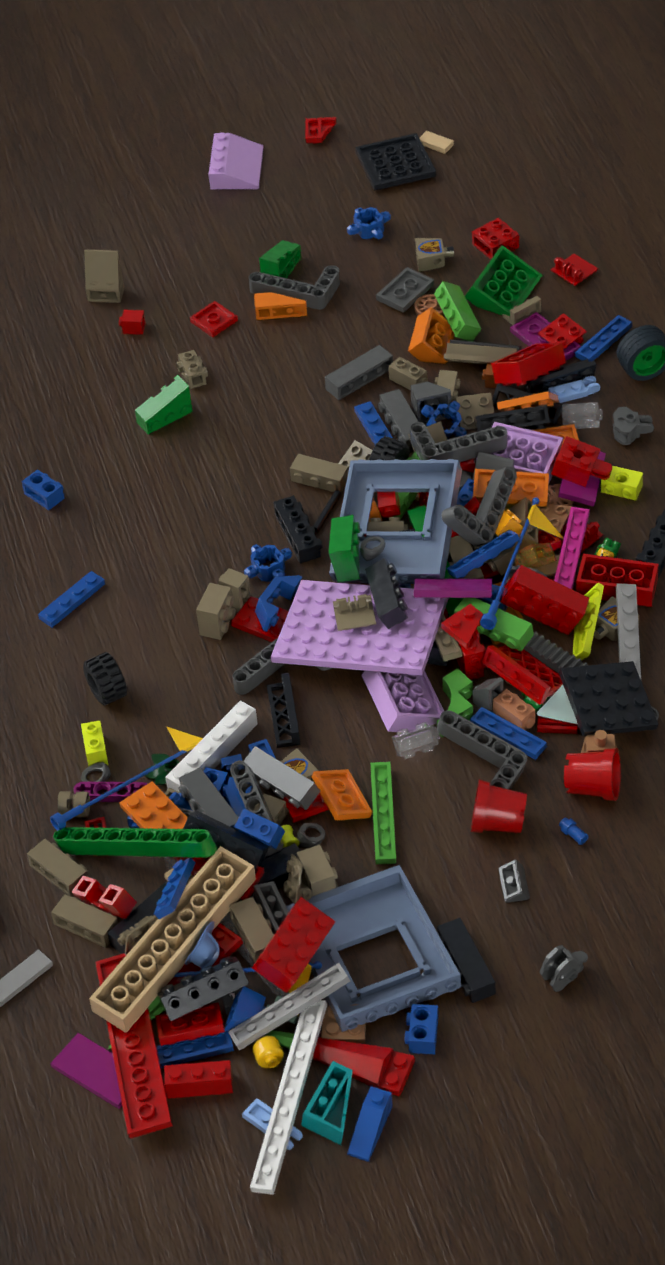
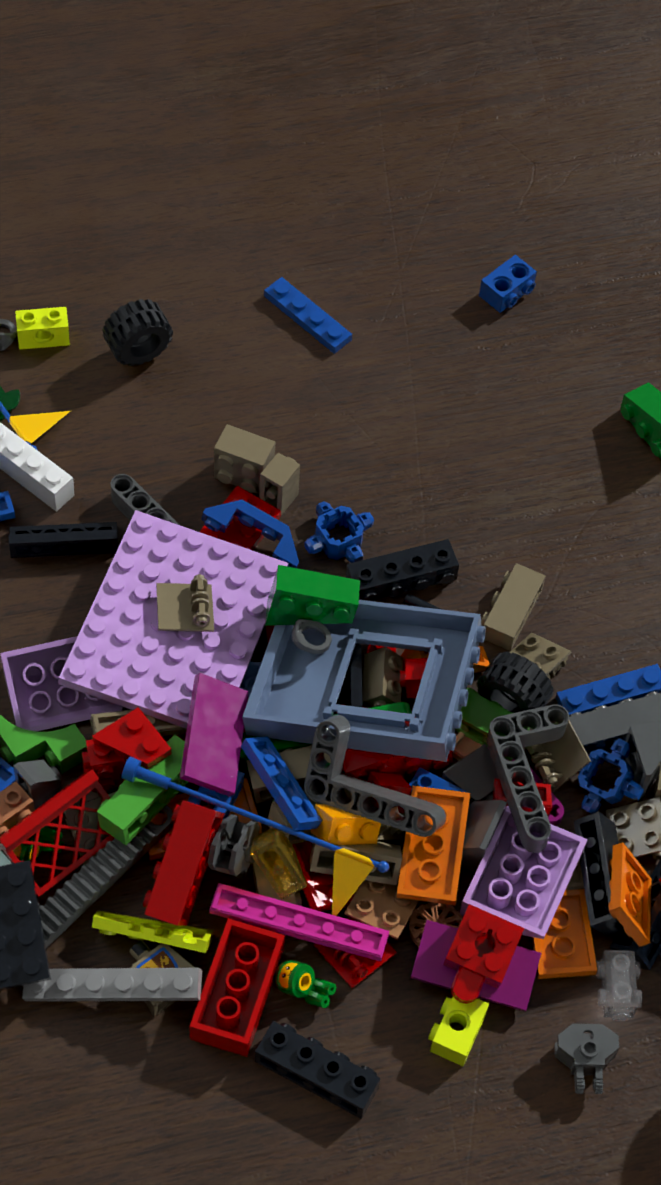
camera: 85 degrees right, 10 degrees up
(387, 593) = (208, 642): black brick -> none

